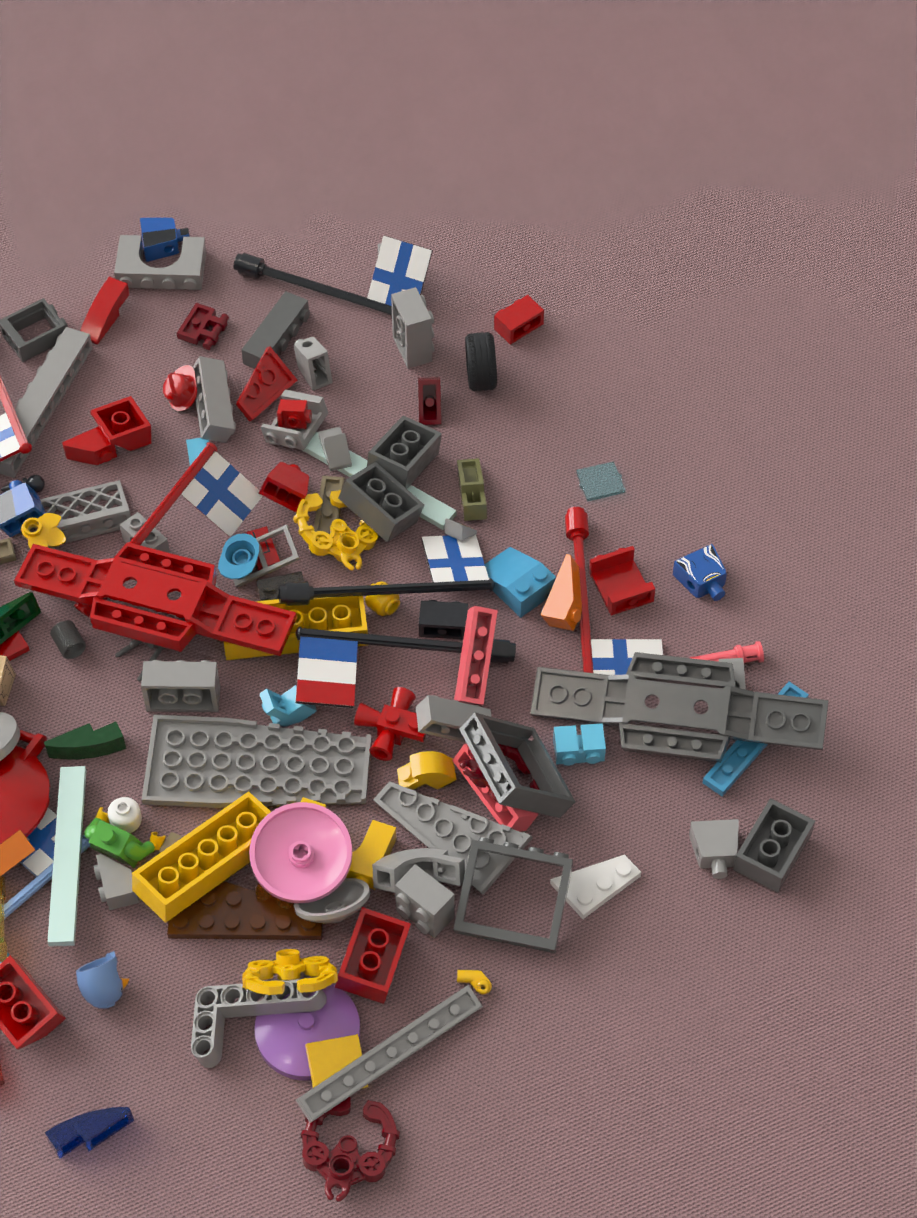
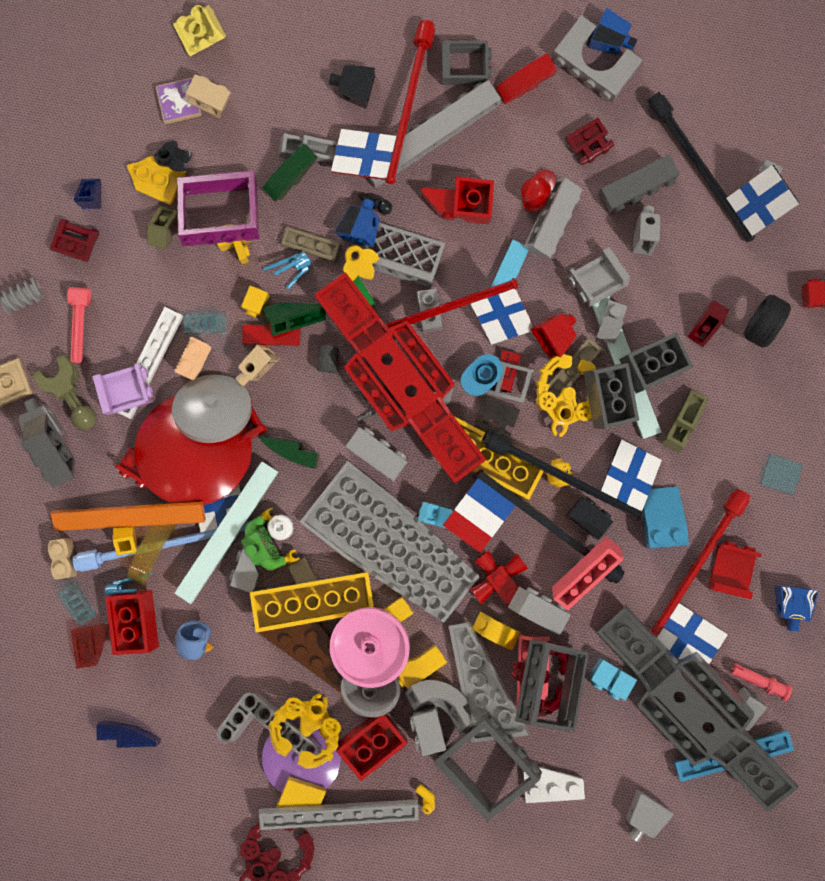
camera: 35 degrees right, 30 degrees up
(265, 385) = (599, 230): red wing -> none
(293, 414) = (600, 275): red brick -> none
(412, 327) = (738, 256): light grey brick -> none
(458, 530) = (651, 451): light grey slope -> none
(564, 601) = (682, 564): slope -> none
(774, 845) = (684, 846): dark grey brick -> none

